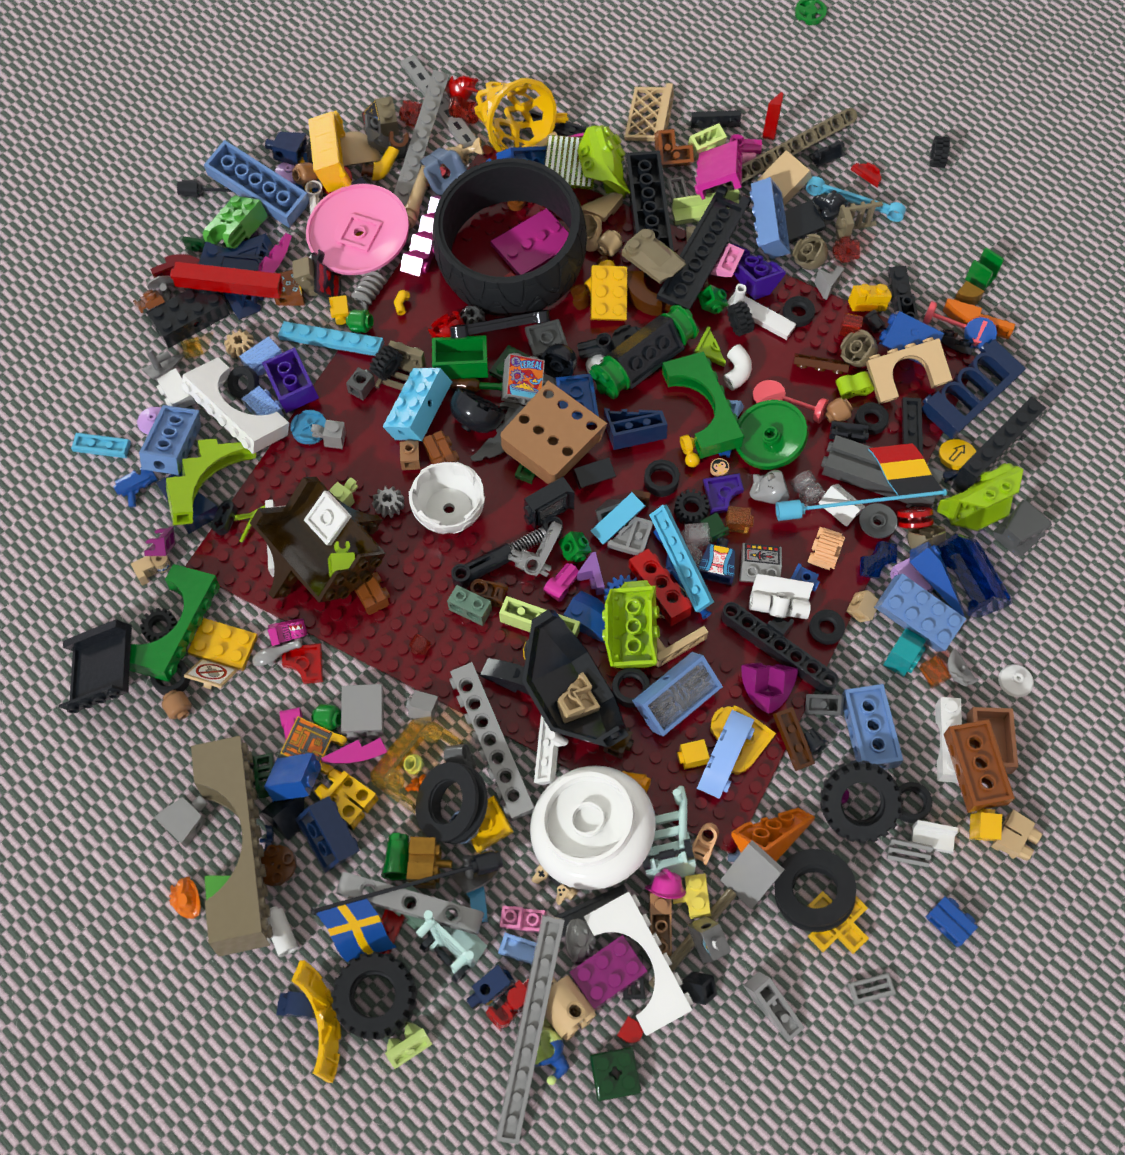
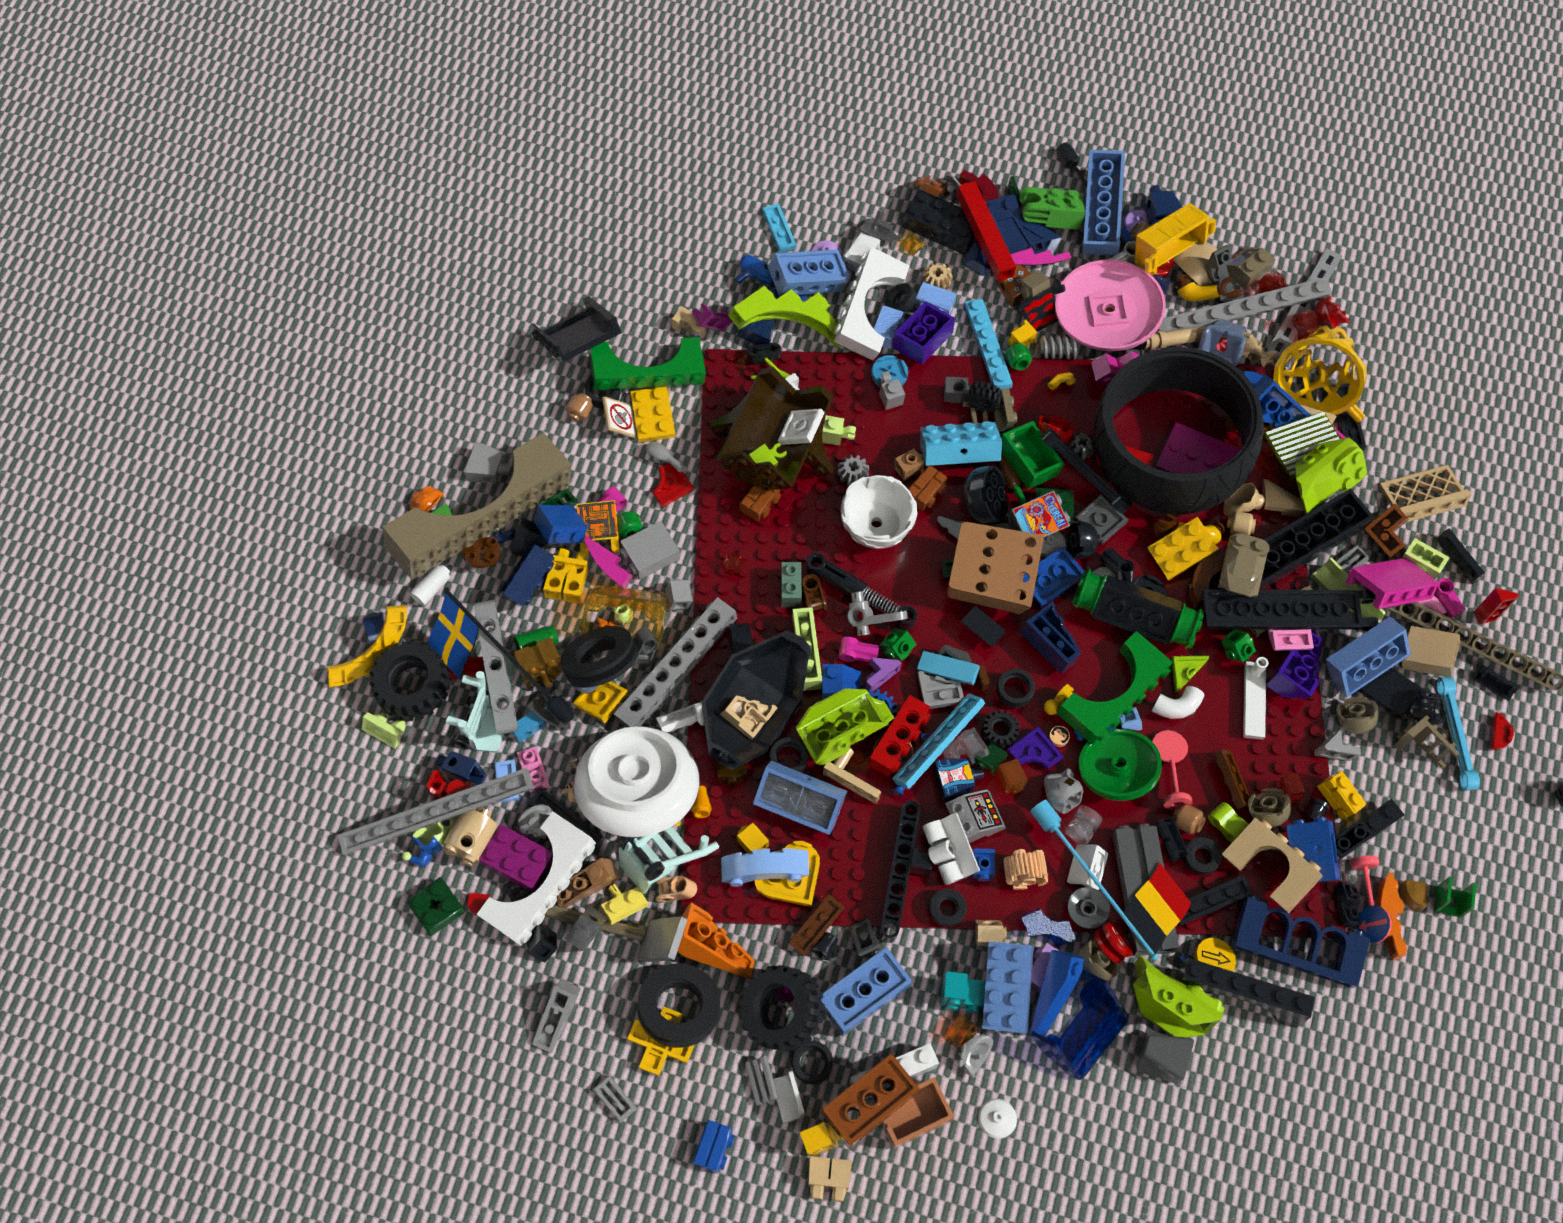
camera: 60 degrees right, 0 degrees up
(152, 619) = (641, 349): black tyre -> none
(286, 631) = (688, 454): dark pink leg -> none
(548, 502) = (926, 599): black window -> none
(667, 885) = (614, 870): dark pink piece -> none
(740, 318) = (1232, 680): black tyre -> none
(768, 684) = (857, 878): magenta brick -> none
(799, 301) = (1287, 723): black tyre -> none
(846, 249) = (1386, 748): clear red brick -> none

